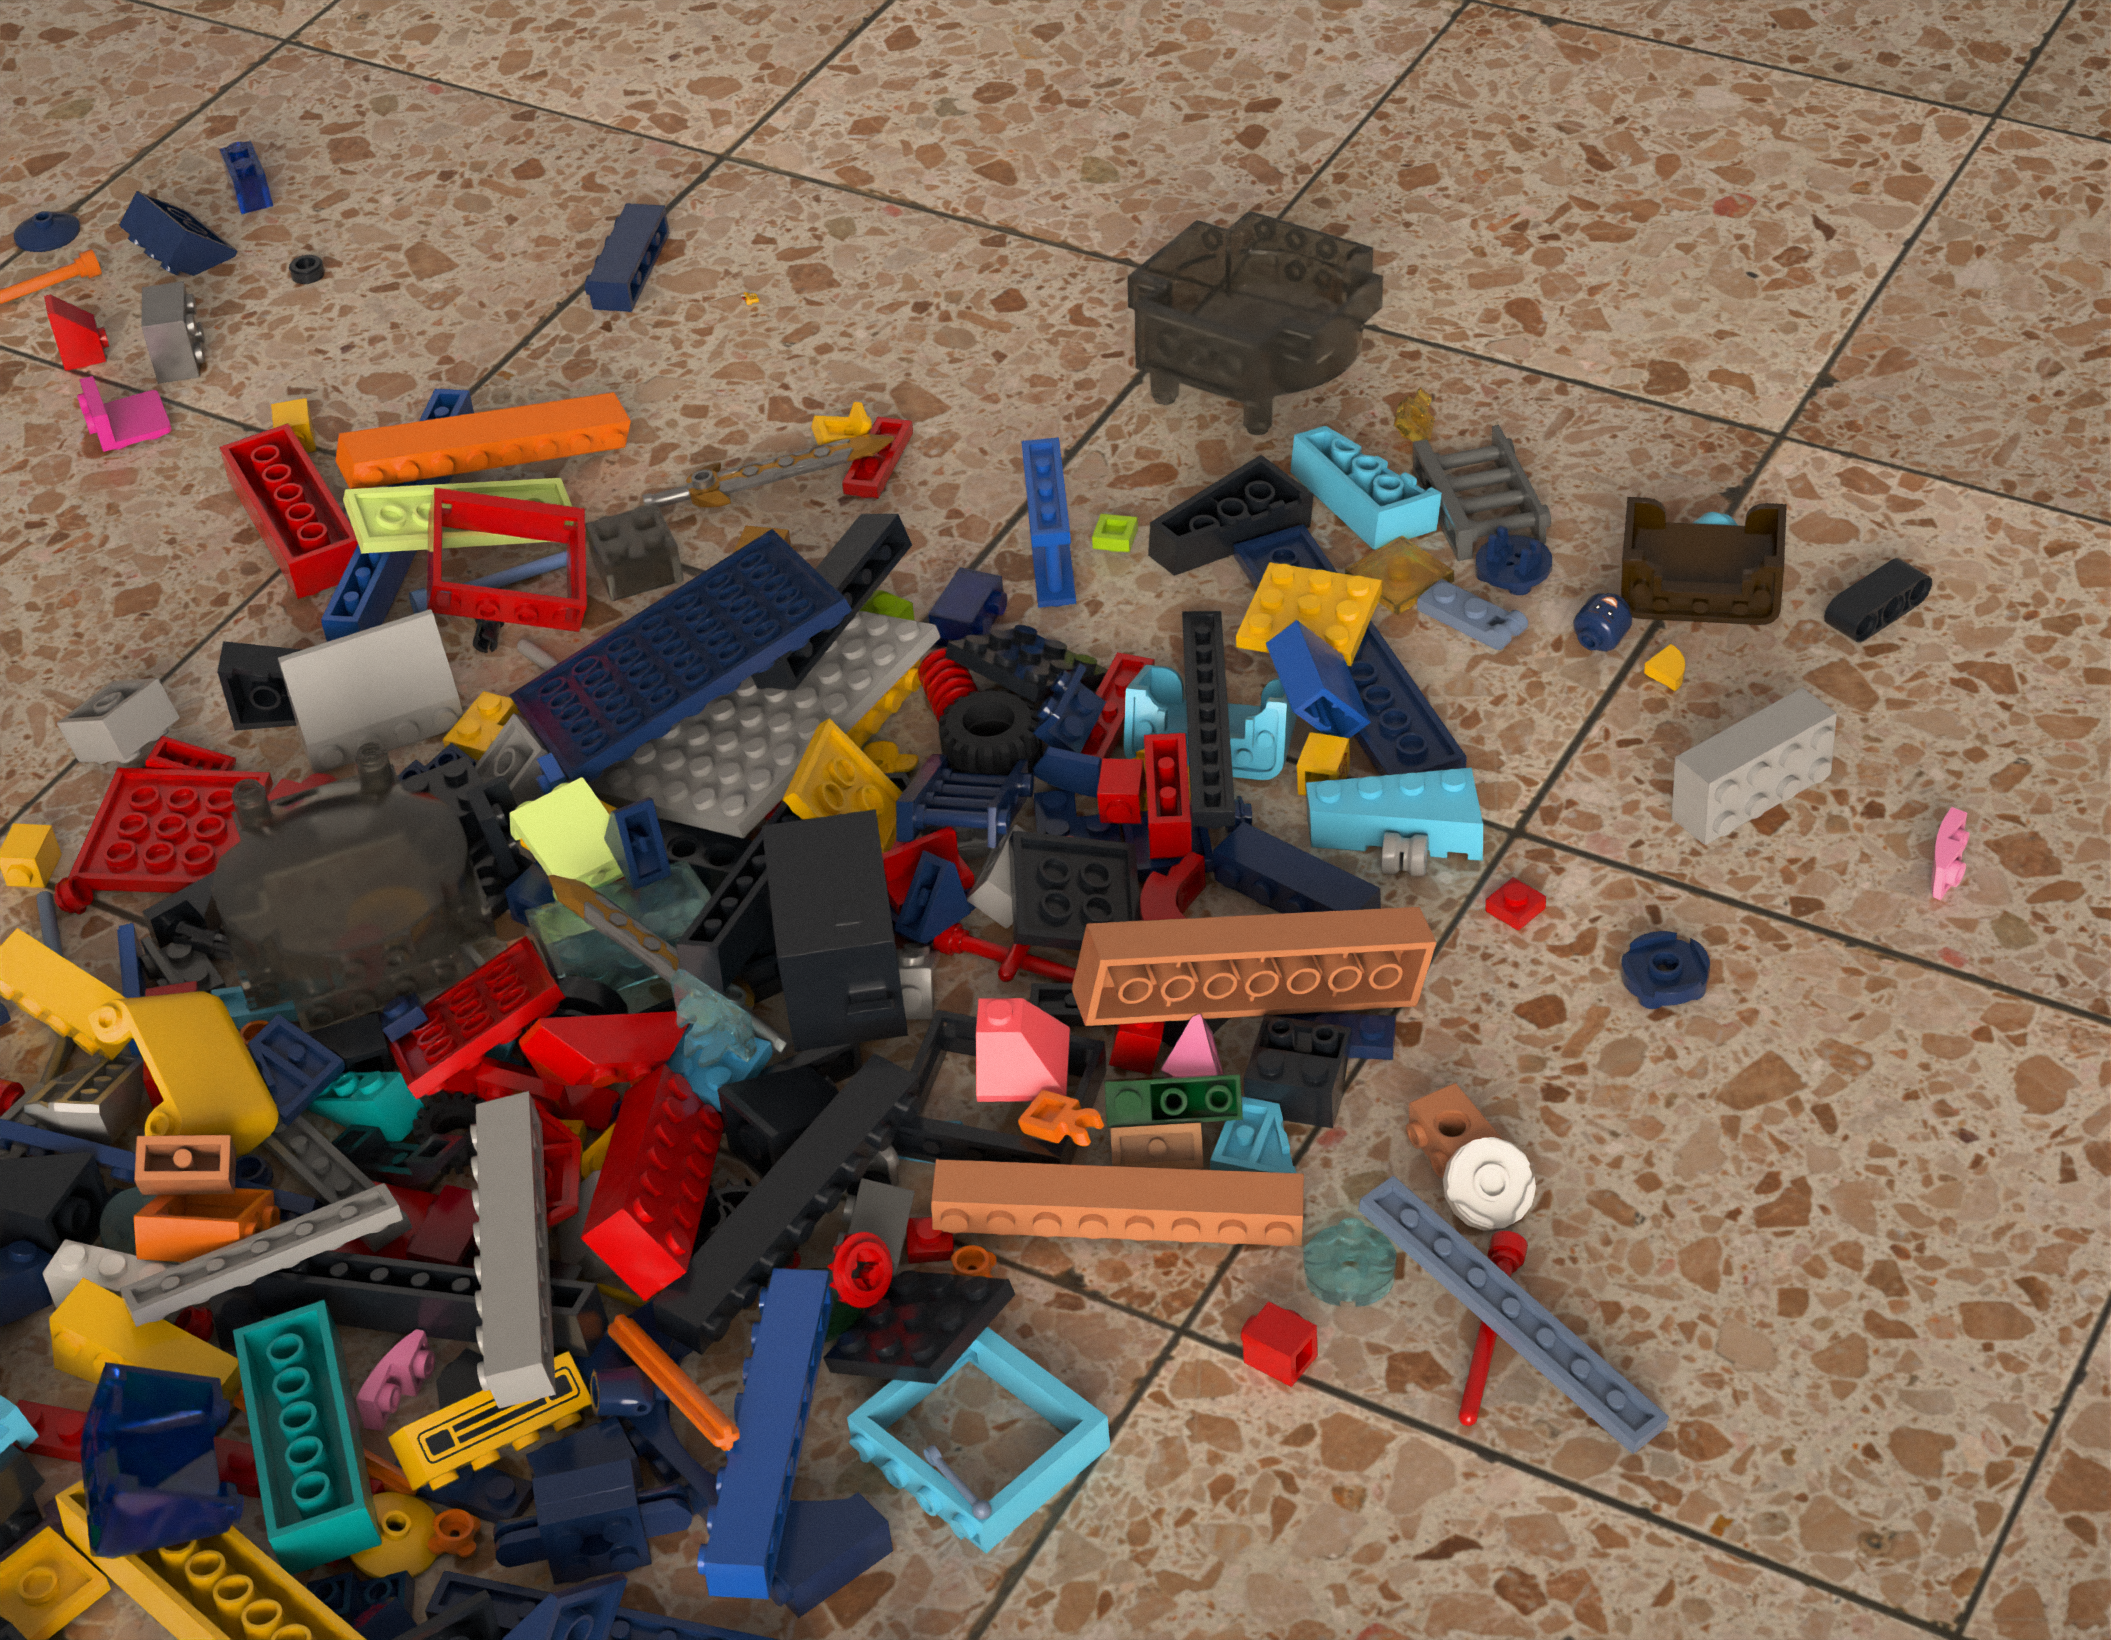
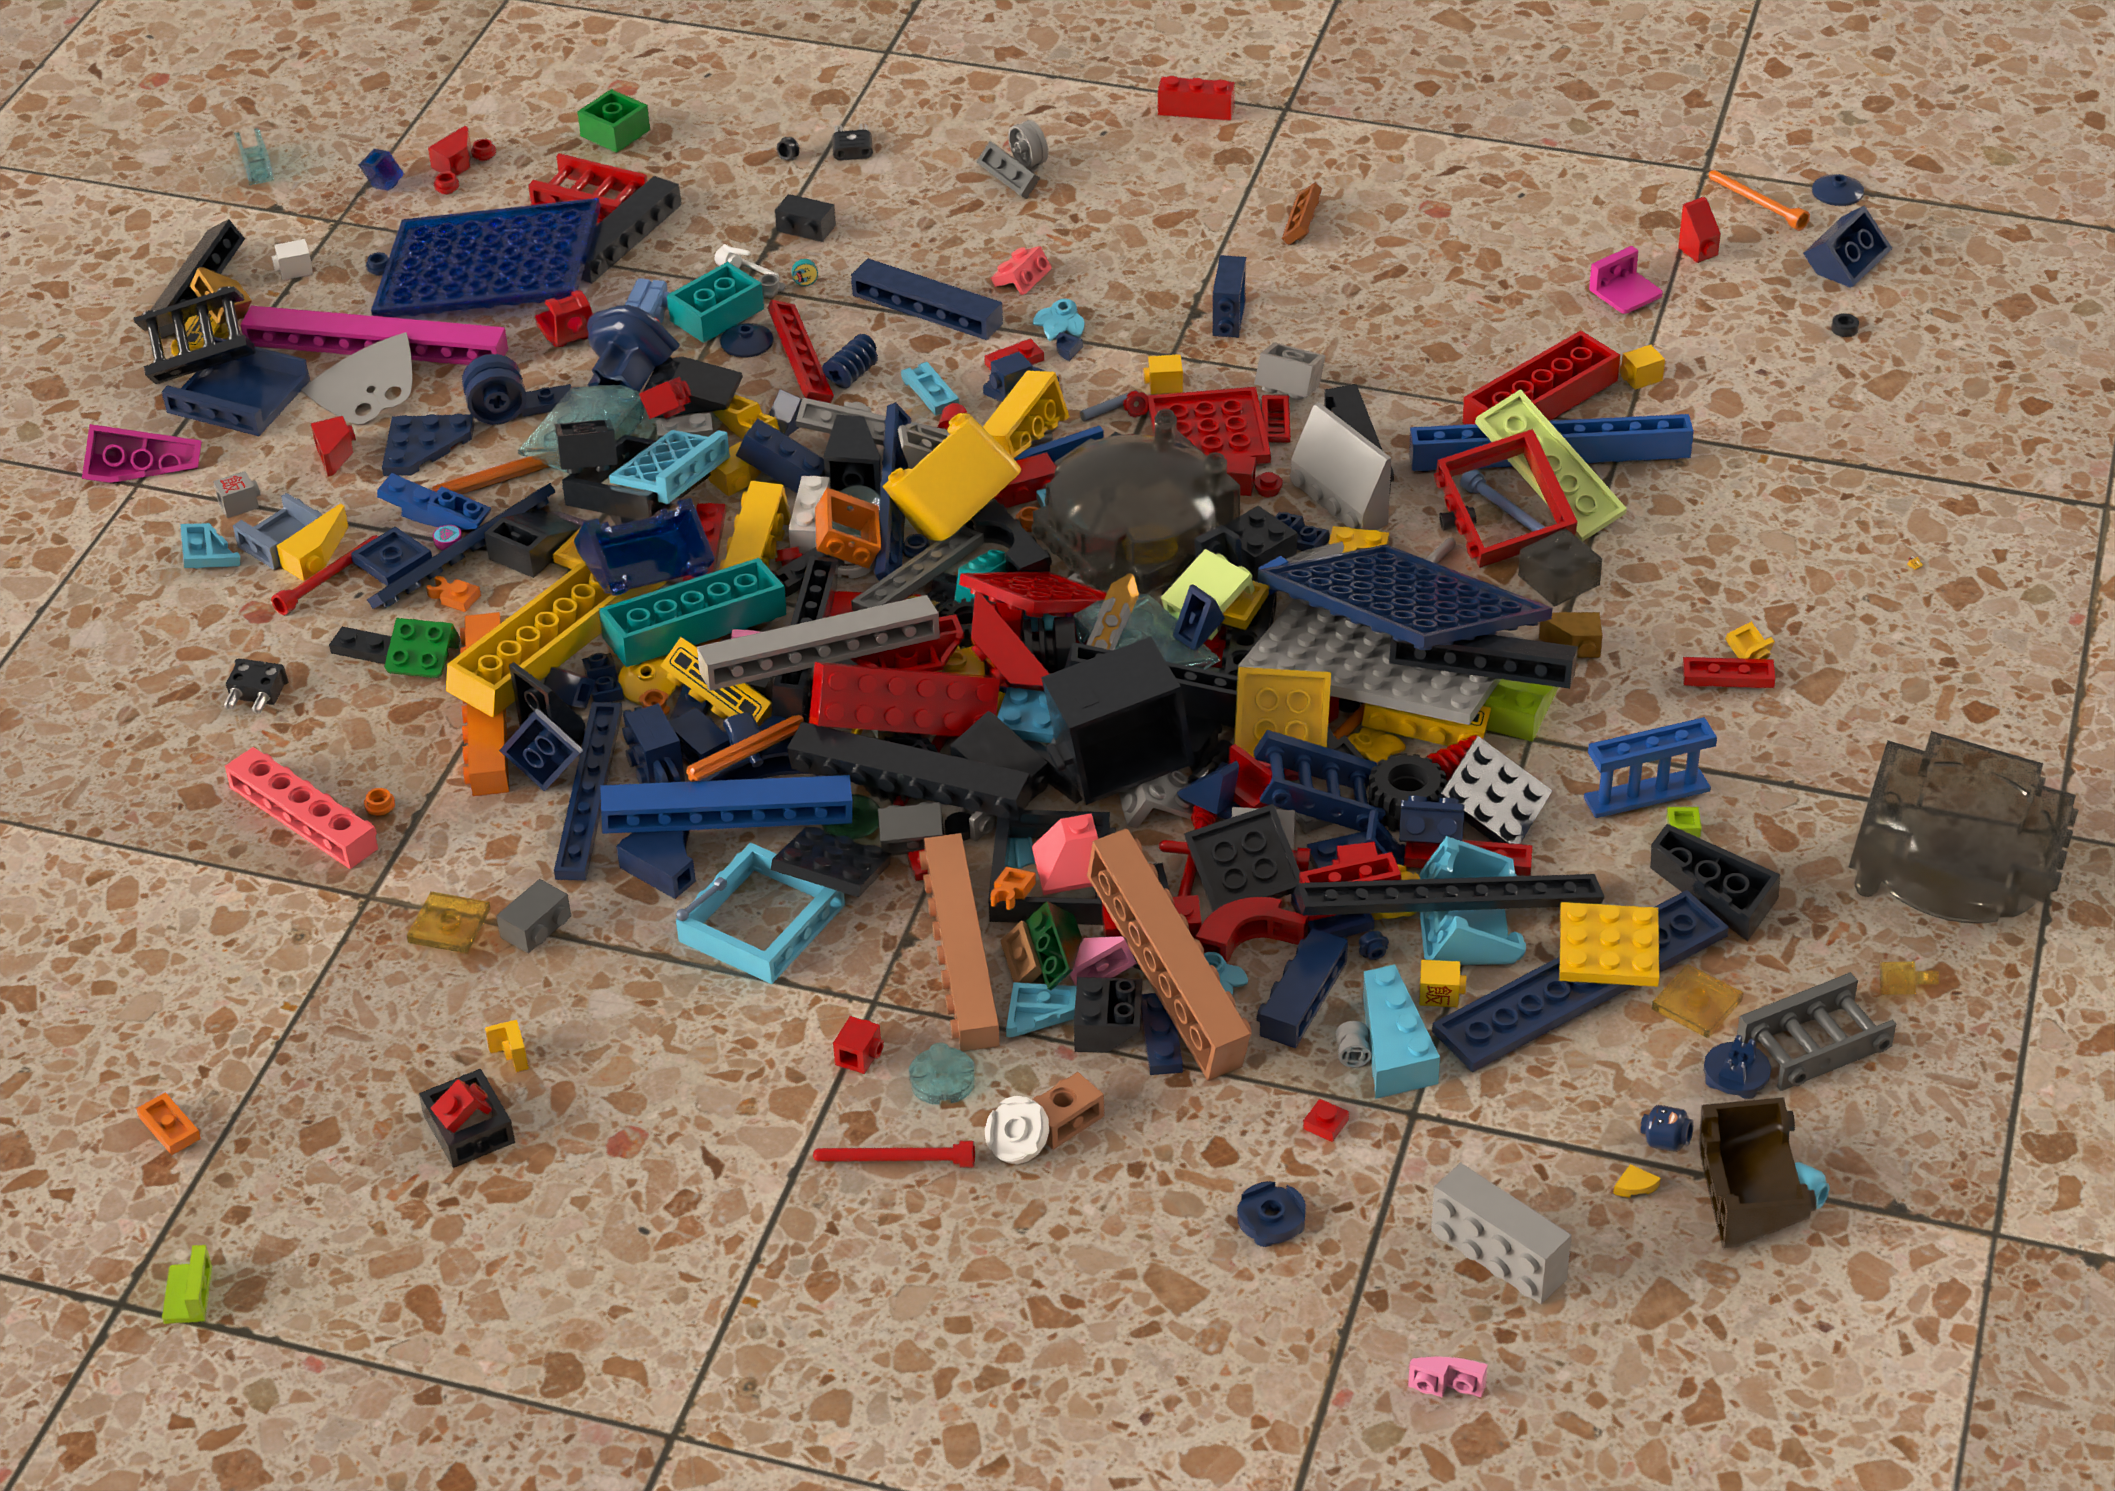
camera: 75 degrees right, 0 degrees up
(172, 332) = (1715, 274): flat silver brick -> none
(185, 1165) = (869, 496): nougat brick -> none
(246, 177) = (1935, 260): clear blue brick -> none
(260, 1254) = (816, 551): light grey plate -> none
(293, 1066) = (988, 530): dark blue wing -> none
(402, 1016) = (1051, 569): dark blue plate -> none
(481, 441) = (1633, 453): orange brick -> none
(627, 257) = (1926, 481): dark blue brick -> none
(709, 486) = (1663, 594): flat silver sword -> none
(715, 1021) = (1031, 698): clear light blue piece -> none
(875, 1275) = (847, 819): red gear -> none
(968, 605) = (1557, 755): clear blue brick -> none
(973, 1261) = (901, 886): orange plate -> none
(1317, 682) = (1505, 950): blue brick -> none
(1362, 488) = (1781, 952): medium azure wedge -> none
(1471, 614) = (1662, 1051): sand blue plate -> none
(1514, 1315) = (894, 1154): sand blue plate -> none
(1878, 600) = (1765, 1311): black beam -> none

